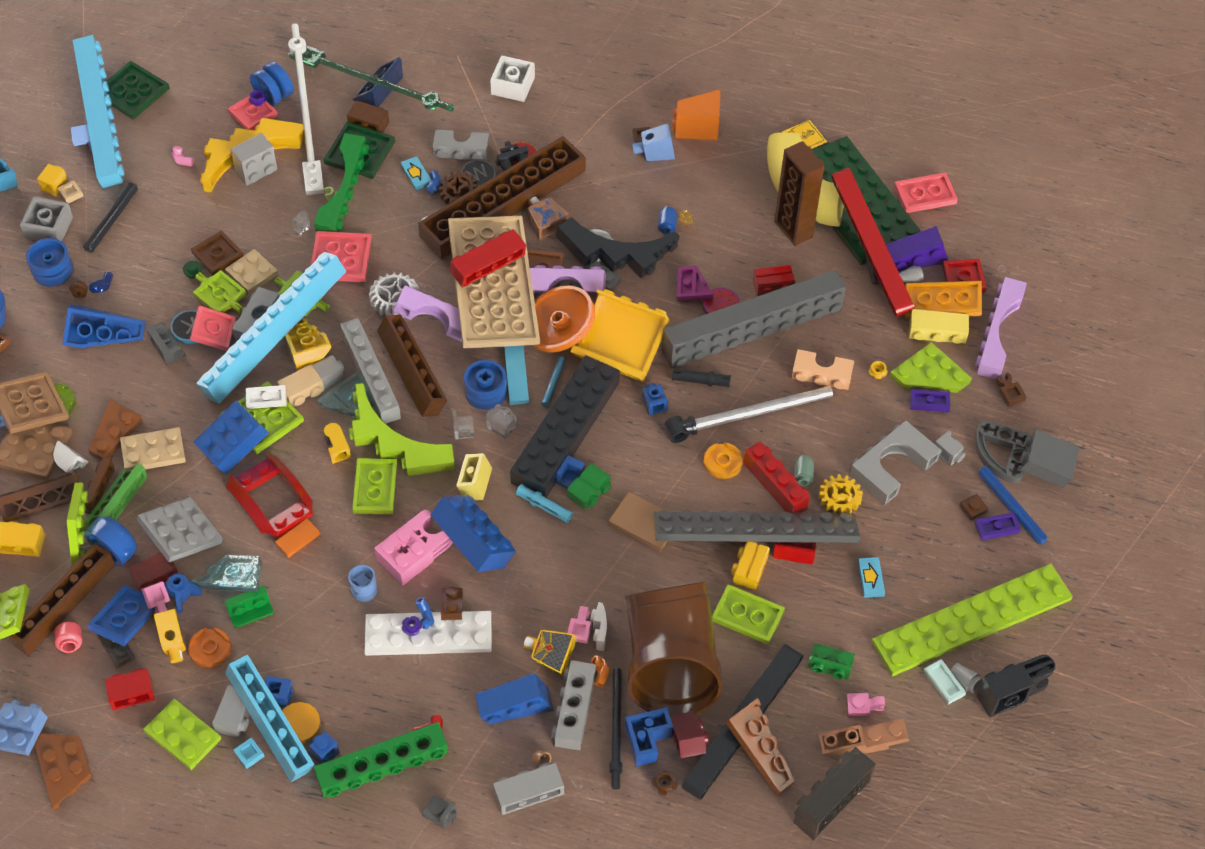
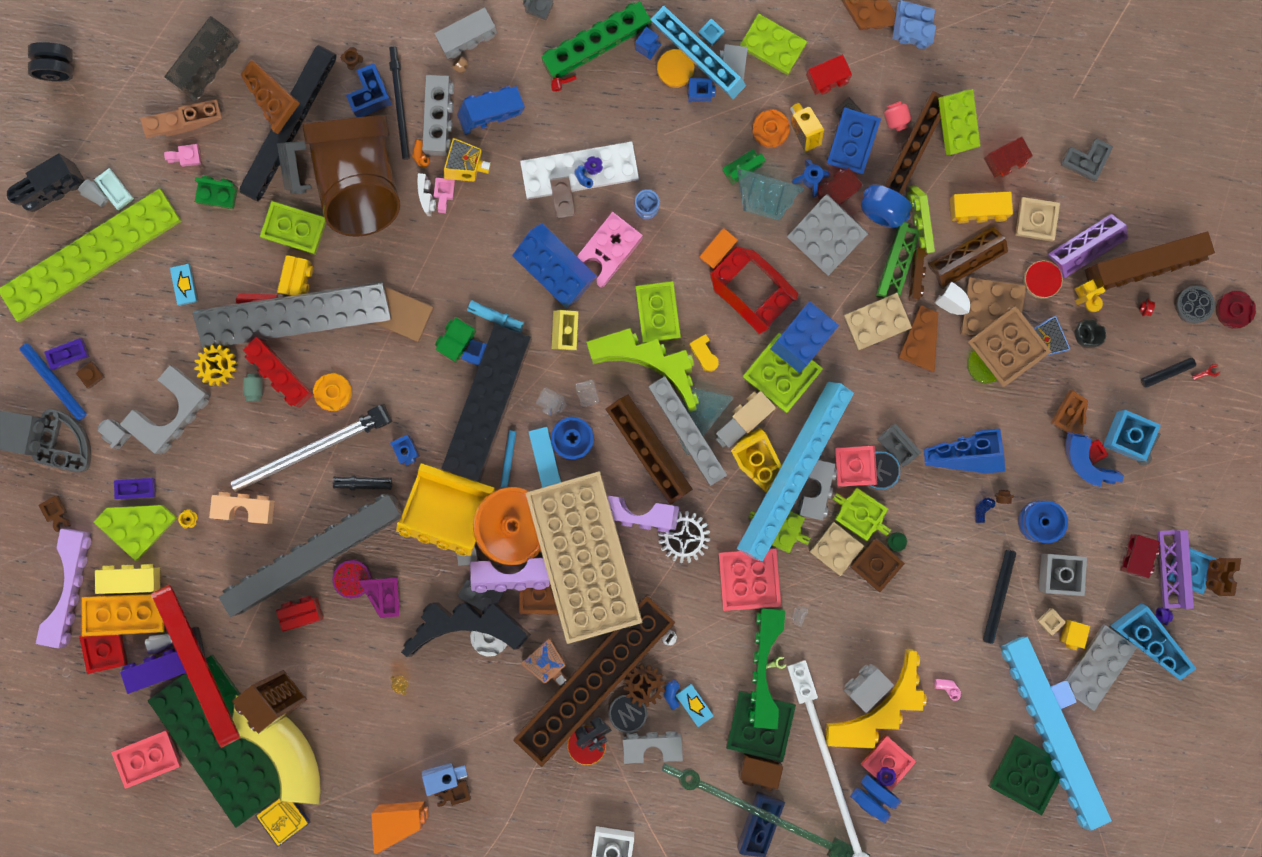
camera: 170 degrees right, 30 degrees up
(48, 149) = (1099, 666): none -> light grey plate
(156, 597) = (828, 159): bright pink plate -> none
(266, 397) = (782, 386): white plate -> none
(487, 258) = (590, 572): red brick -> none
(667, 220) = (417, 677): blue brick -> none
(688, 734) = (333, 95): dark red brick -> none
(741, 669) = (289, 166): none -> dark grey panel
(1011, 812) = (50, 61): none -> black wheel

